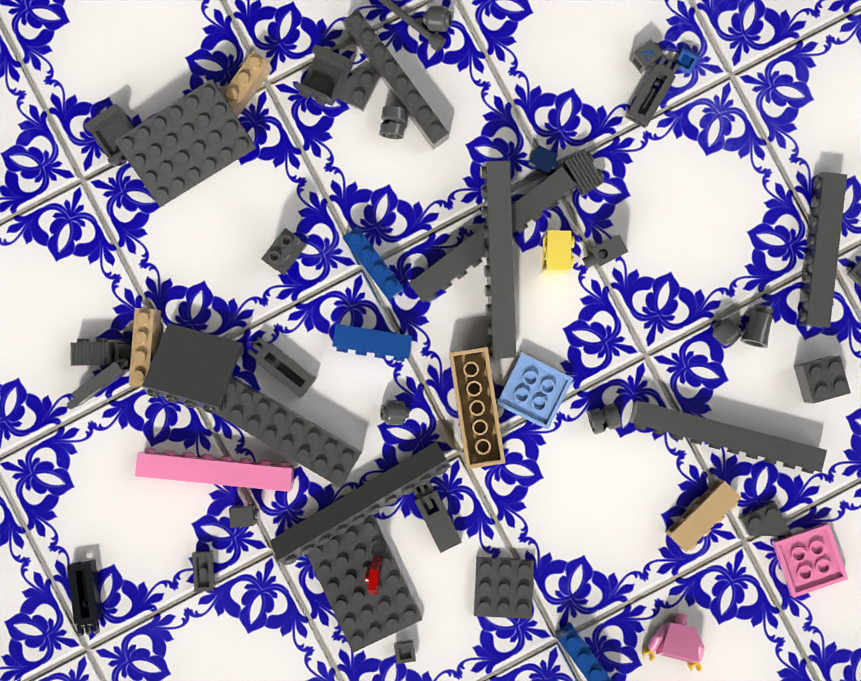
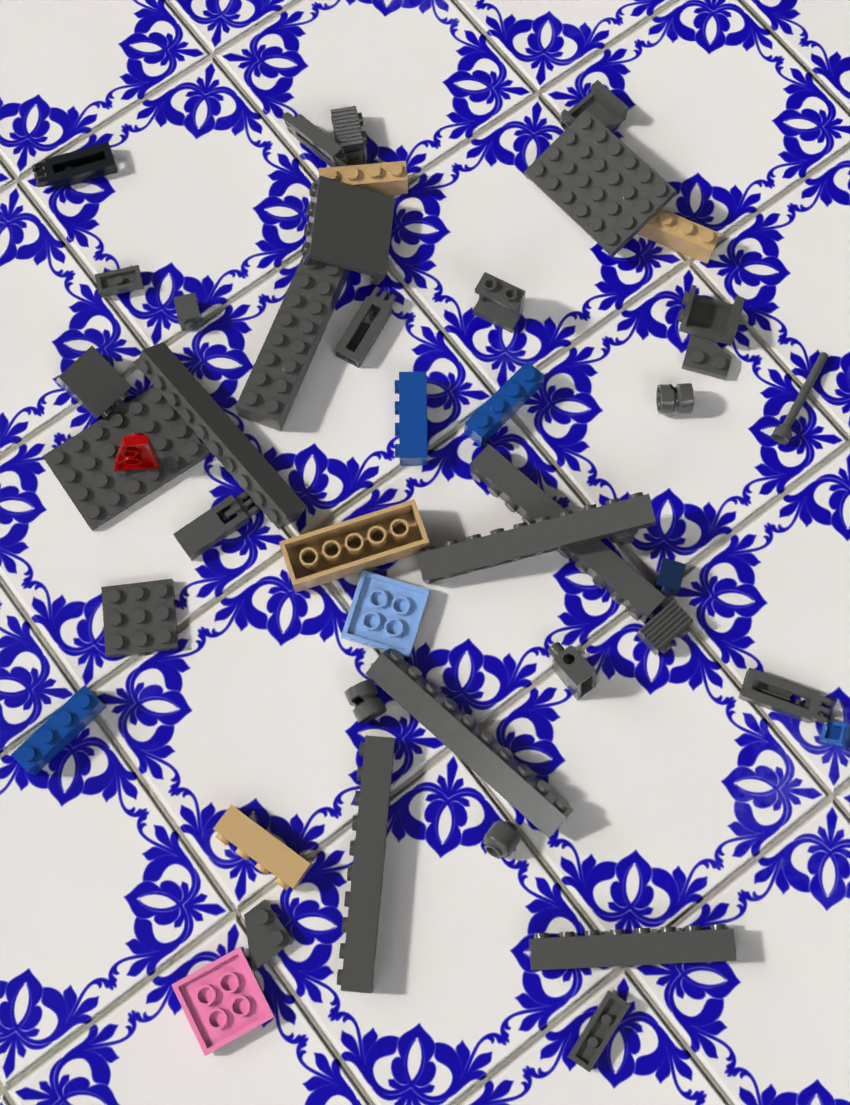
camera: 80 degrees right, 15 degrees down
(215, 470) = (235, 276): bright pink brick -> none
(296, 604) = (94, 383): none -> dark grey slope
(394, 412) = (333, 455): dark grey head -> none
(395, 79) = (724, 395): dark grey brick -> none
(405, 652) = (49, 514): dark grey plate -> none
(437, 18) = (810, 429): dark grey head -> none
(557, 252) = (559, 607): light yellow brick -> none
(646, 56) = (827, 680): dark grey brick -> none
(649, 343) = (469, 741): none -> dark grey brick
(677, 642) = (95, 840): bright pink torso -> none
(758, 327) = (515, 879): dark grey plant -> none
(822, 379) = (463, 975): dark grey brick -> none

